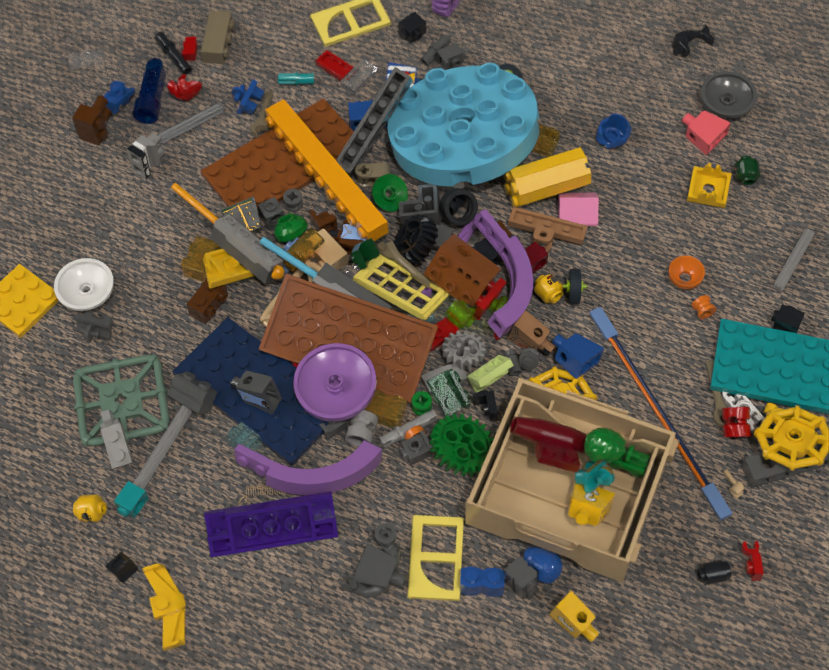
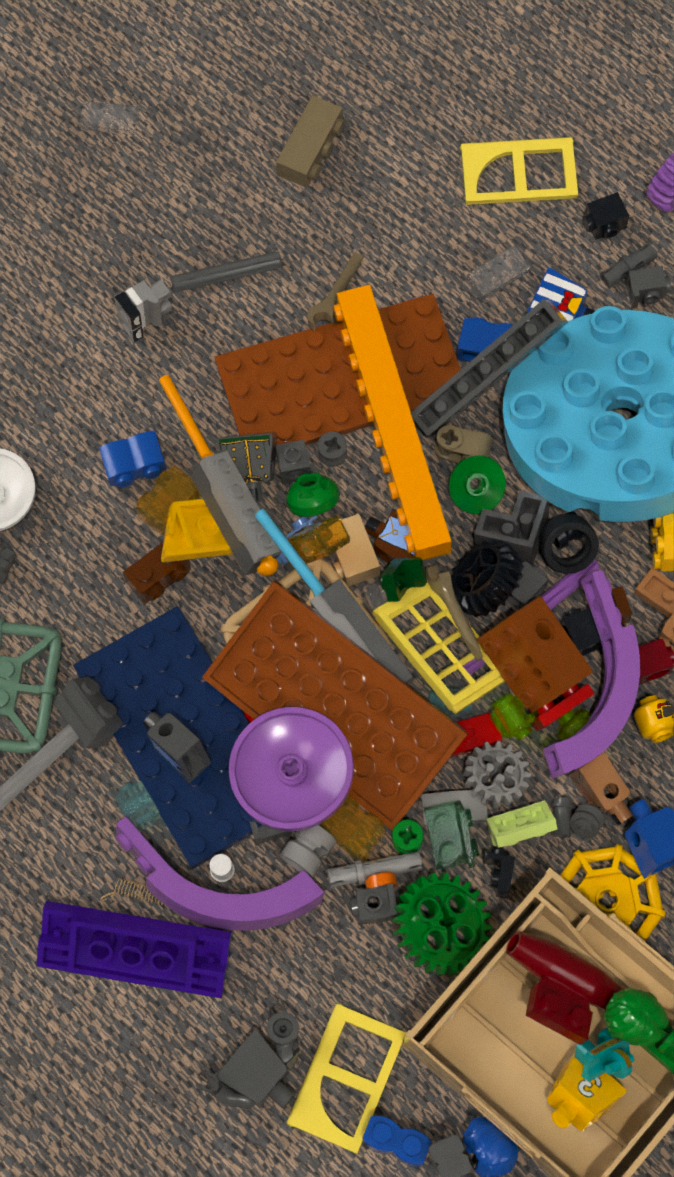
camera: 20 degrees right, 10 degrees up
(91, 121) = (81, 229): reddish brown brick -> none
(118, 95) = (132, 197): blue hips -> none
(147, 104) = (172, 224): clear blue beam -> none
(169, 48) = (234, 137): black pin -> none
(169, 241) = (132, 459): none -> blue brick
(184, 90) = (234, 214): red hair -> none
(190, 48) = (265, 147): red piece -> none
(245, 104) = (332, 250): blue hips -> none
(296, 78) = (403, 247): teal axle -> none
(310, 458) = (221, 868): none -> white piece
(323, 220) = (365, 498): reddish brown panel -> none
(333, 65) = (467, 242): red plate -> none

